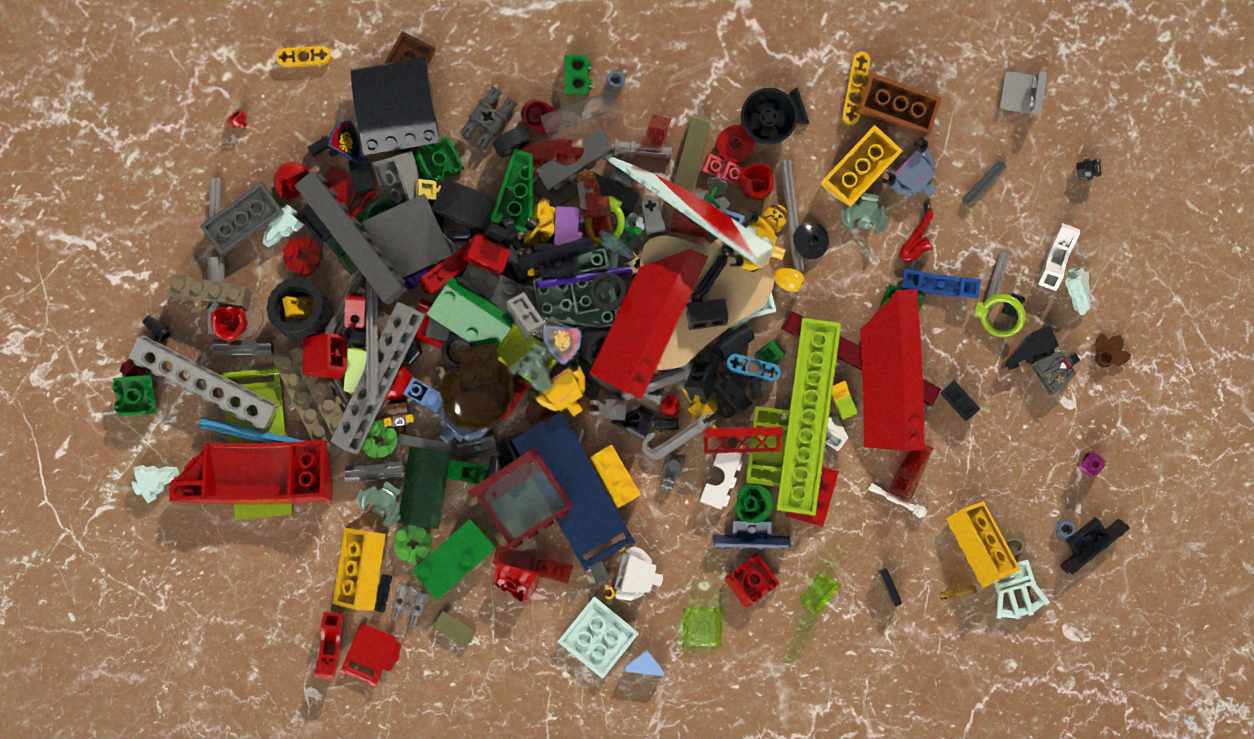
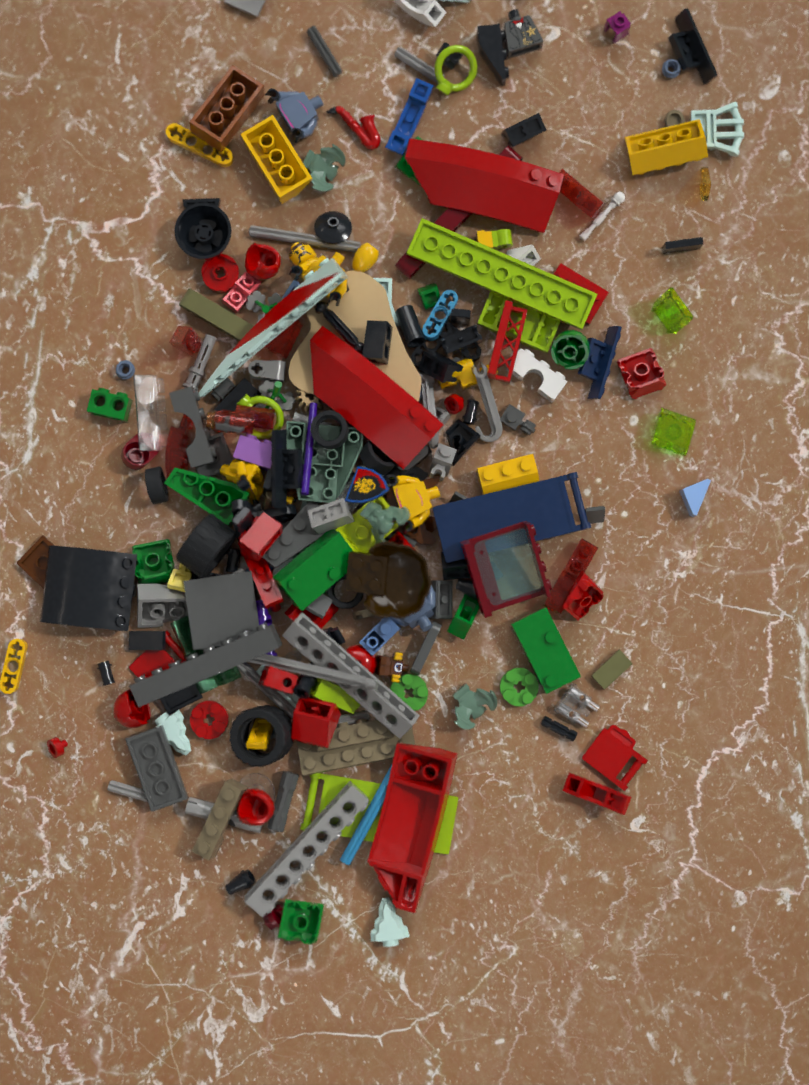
camera: 75 degrees left, 0 degrees up
(345, 141) = (109, 647): shield -> none
(359, 569) = (530, 745): yellow slope -> none
(372, 472) = (440, 703): dark grey axle -> none
(424, 487) = (468, 660): clear green slope -> none
(491, 127) = (136, 501): dark grey pin -> none
(598, 637) = (656, 533): light aqua plate -> none
(616, 245) = (281, 413): clear light blue slope -> none
(634, 575) = (607, 481): white torso -> none

